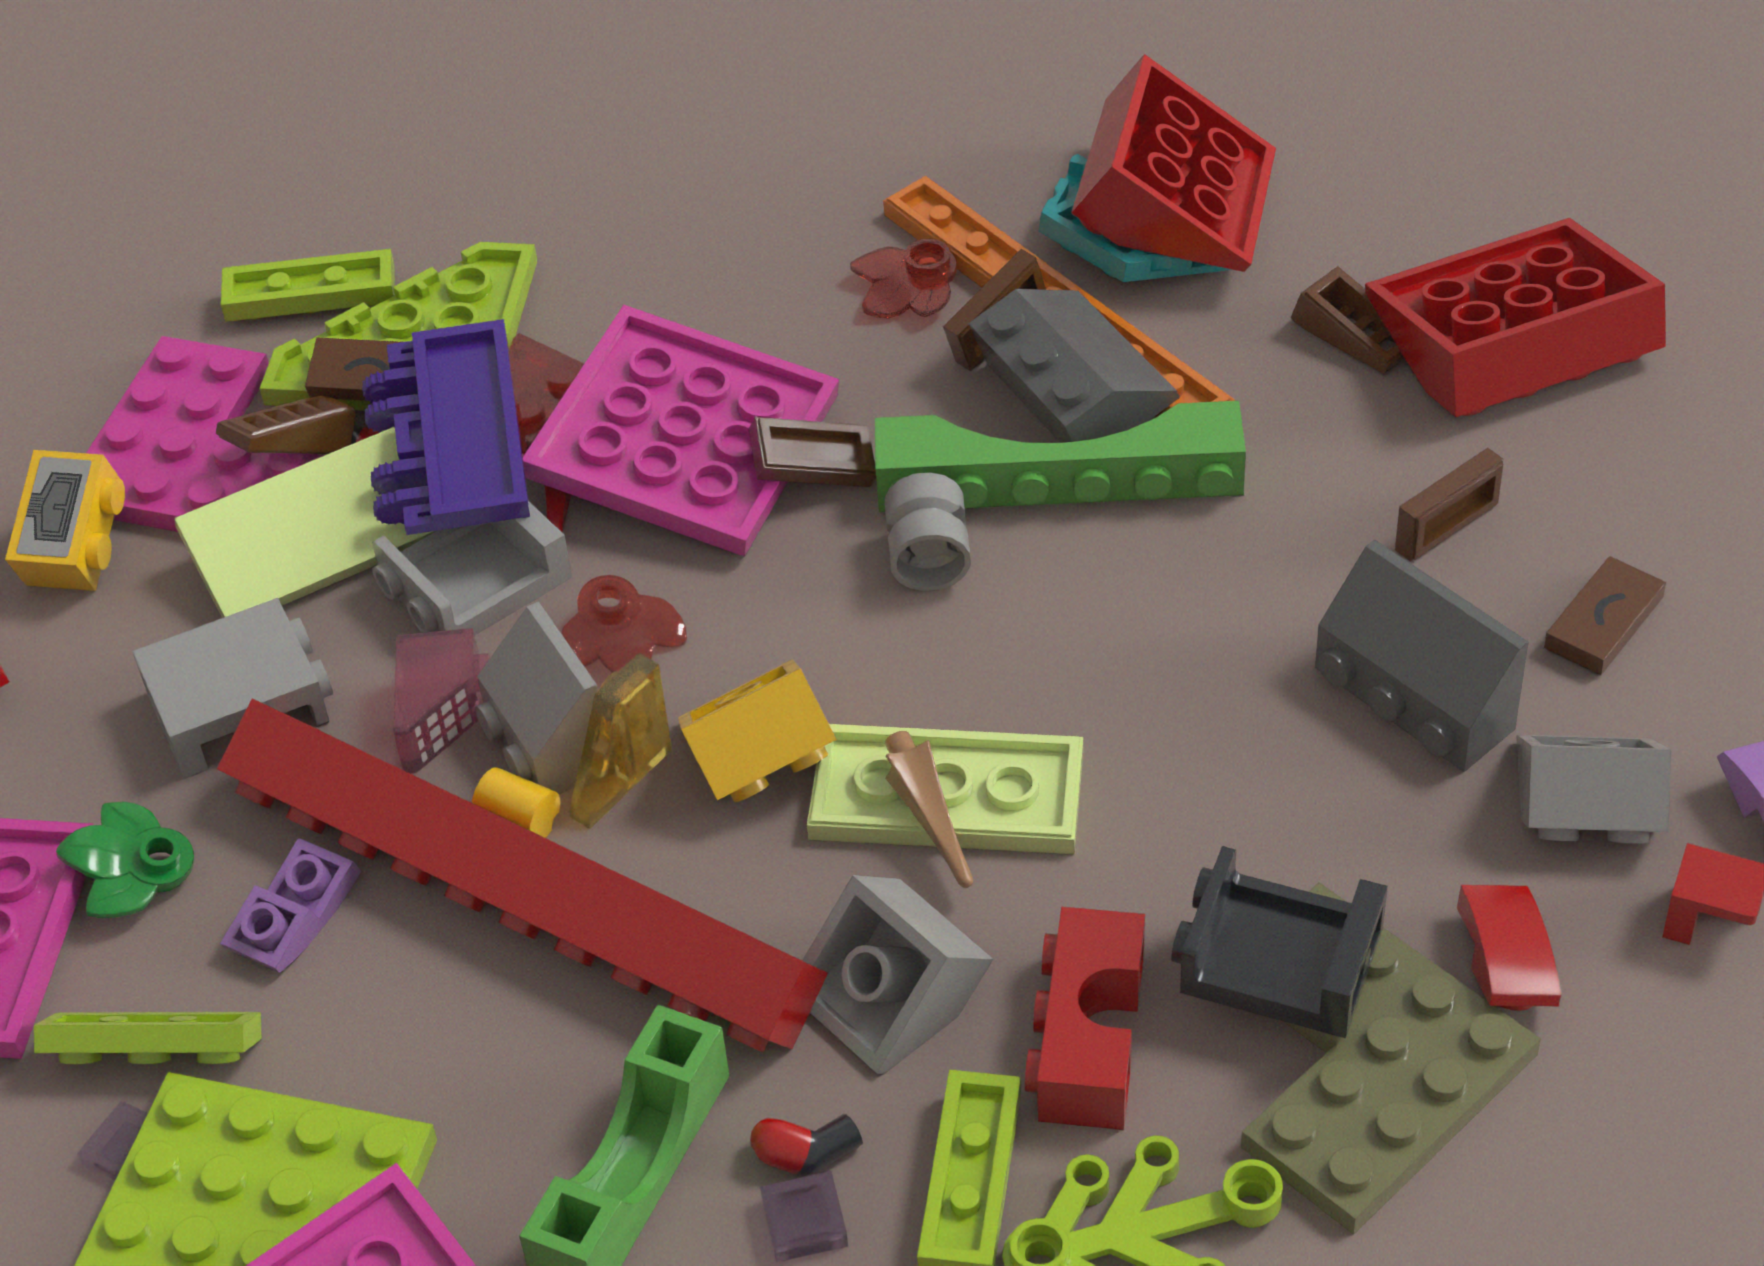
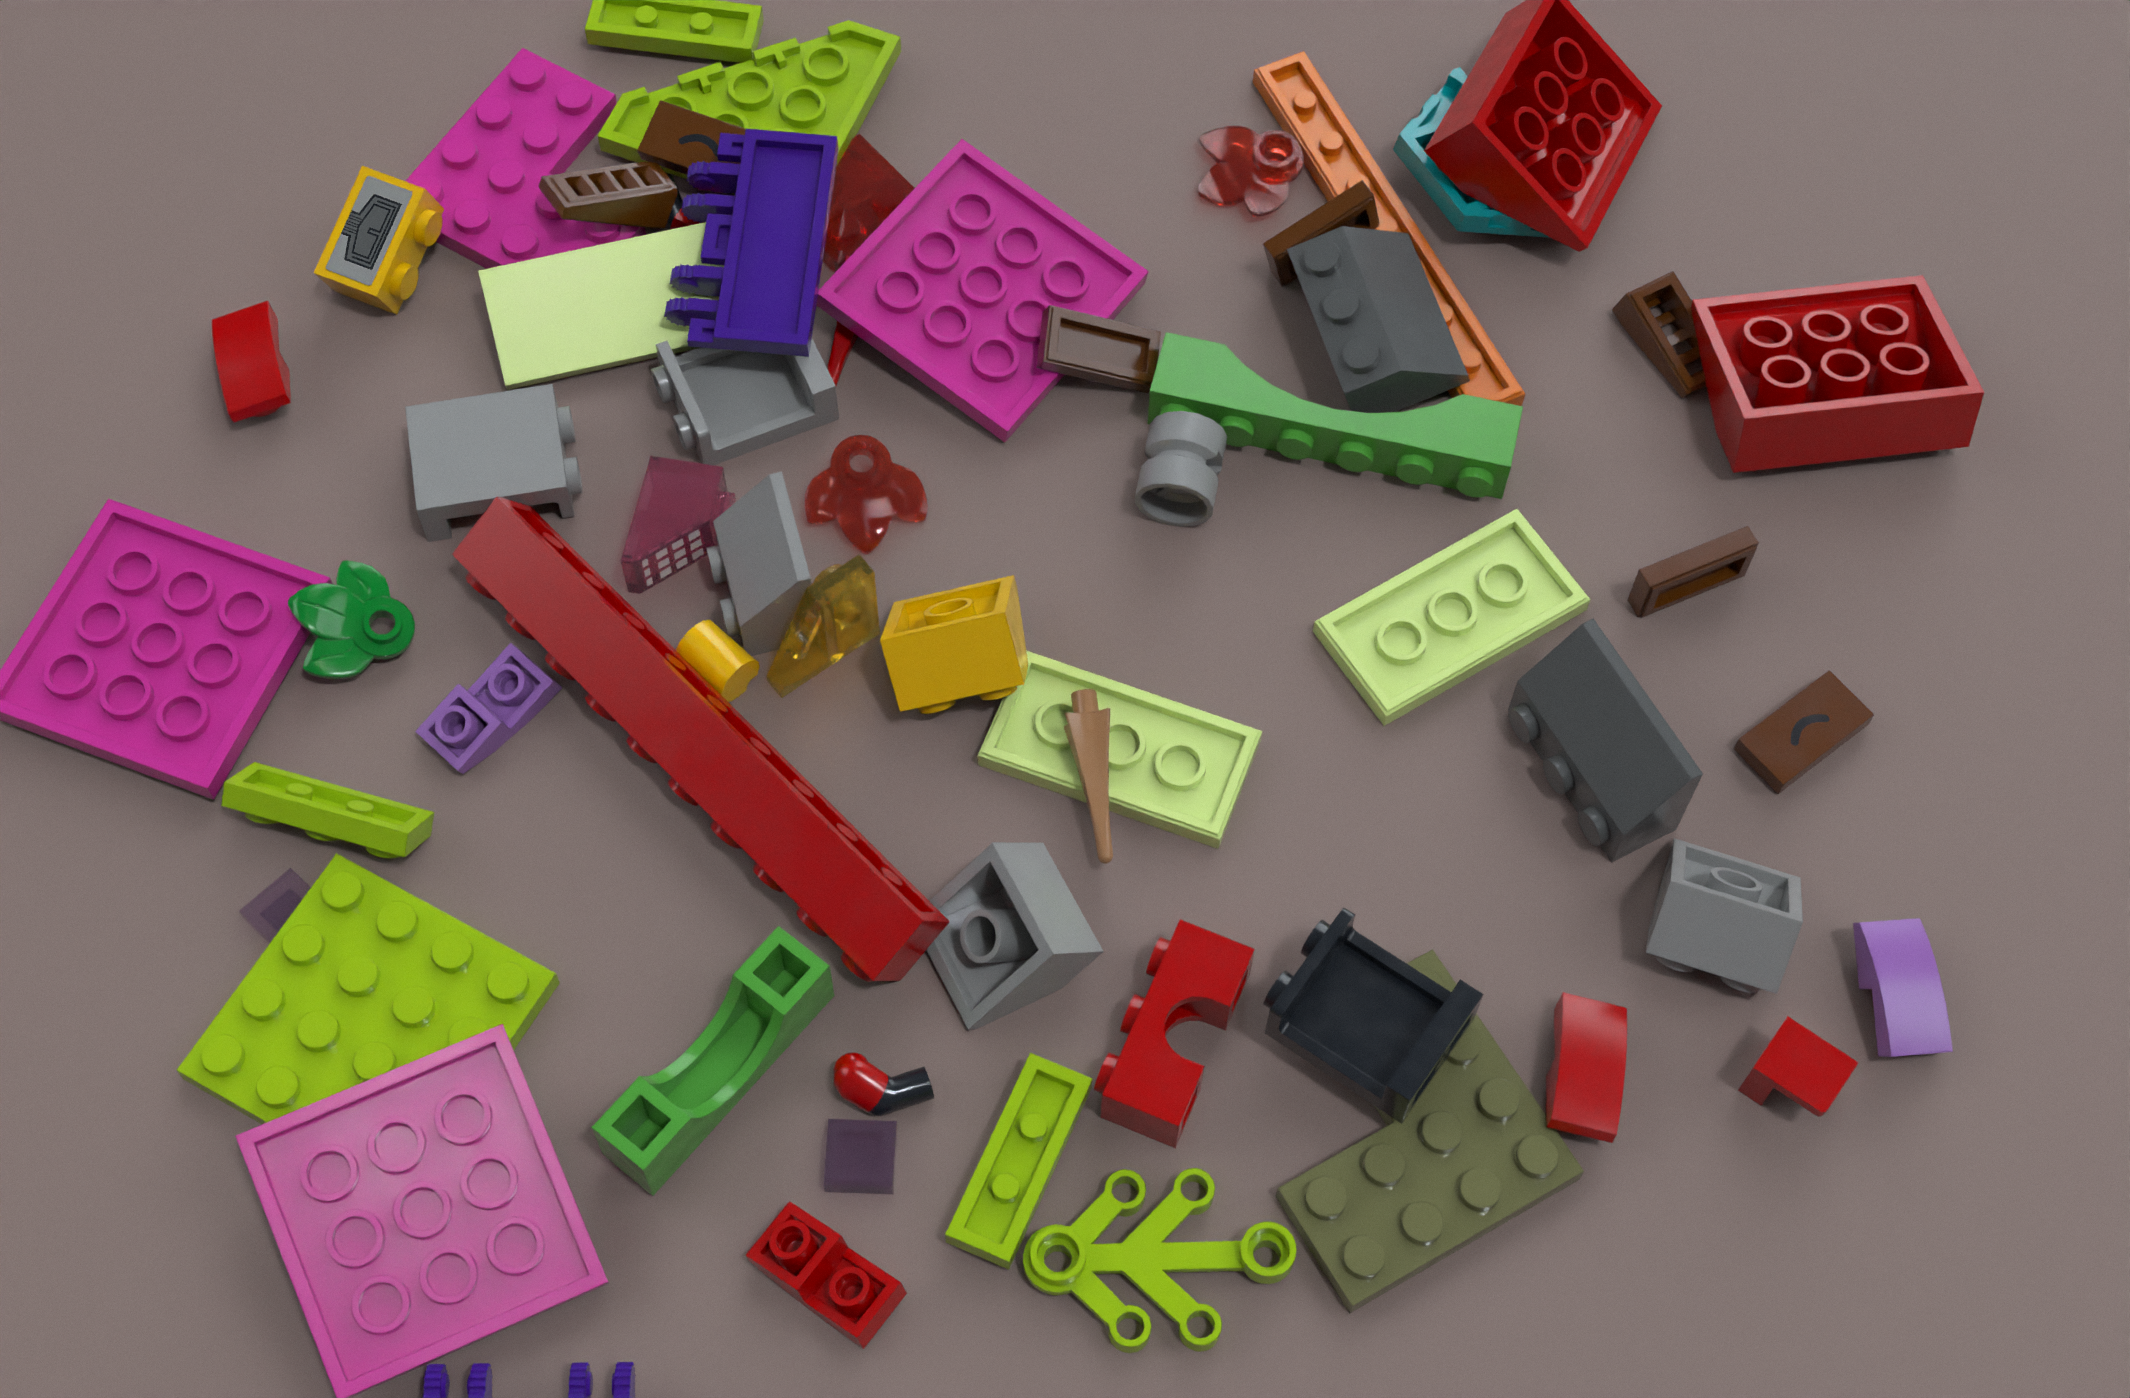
camera: 10 degrees right, 15 degrees up
(1230, 601) = (1450, 616): none -> yellowish green tile

